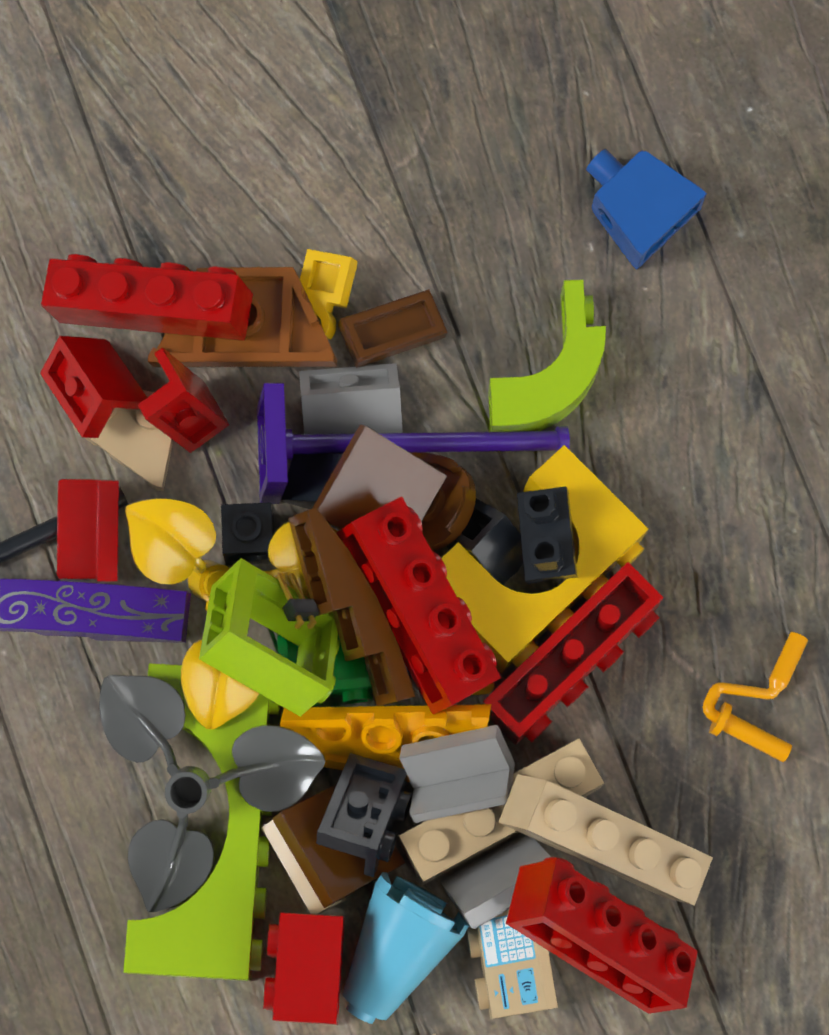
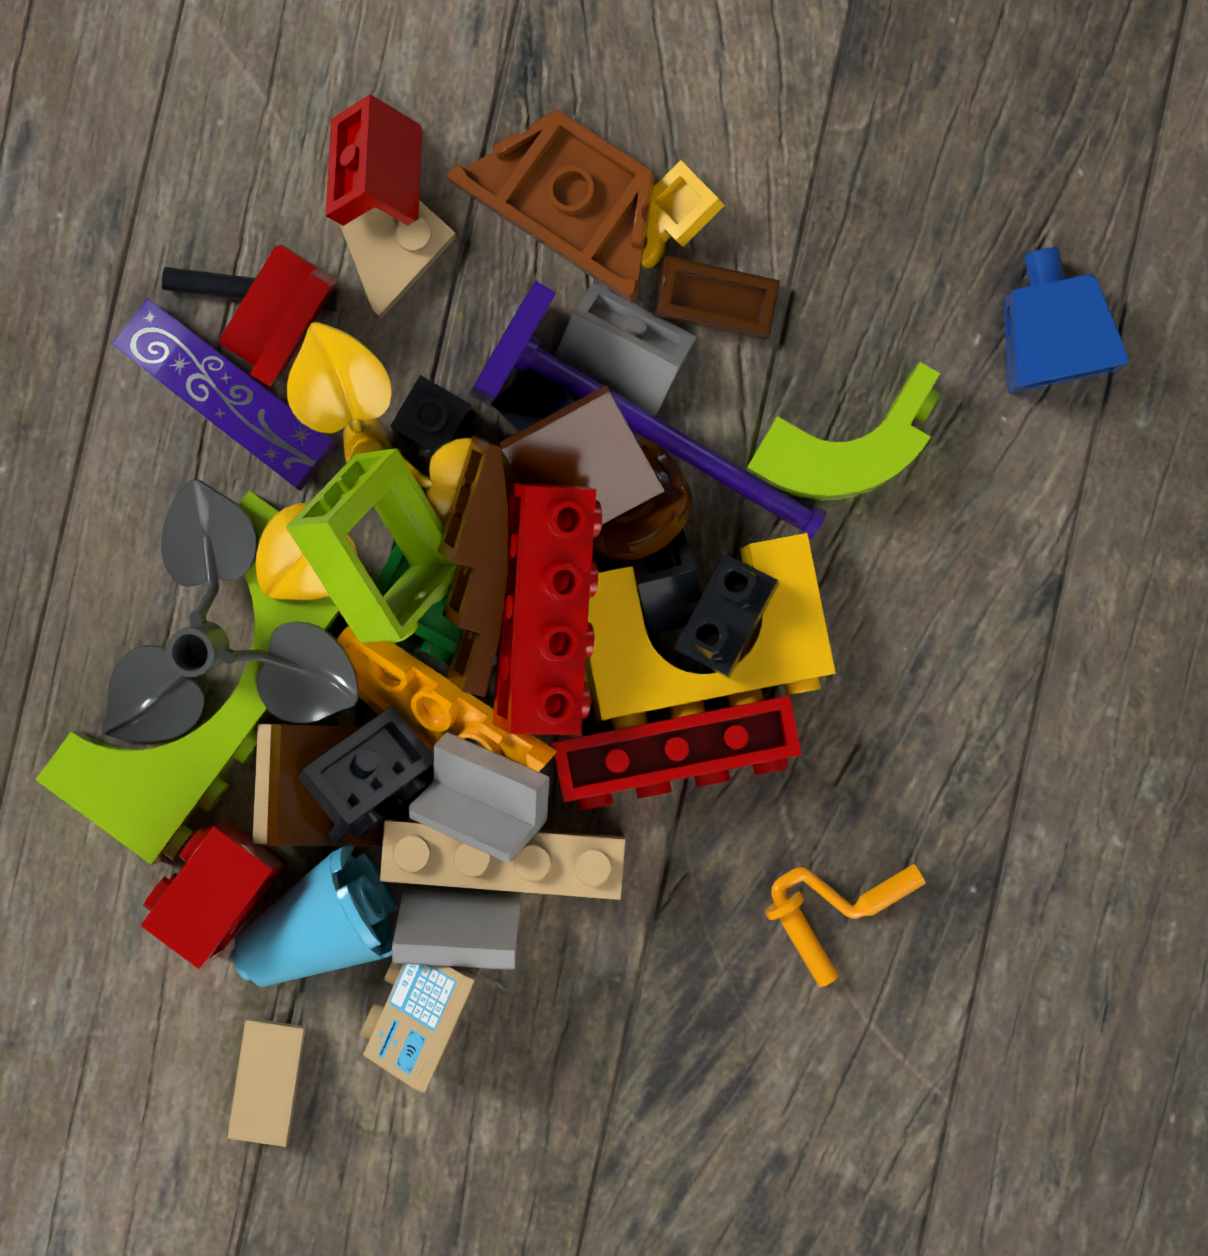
camera: 40 degrees right, 10 degrees up
(147, 297) = (482, 111): red brick -> none
(183, 406) = (450, 251): red panel -> none
(298, 609) = (423, 536): piece -> none
(602, 935) = (516, 1048): red brick -> none
(605, 839) = (582, 957): tan brick -> none

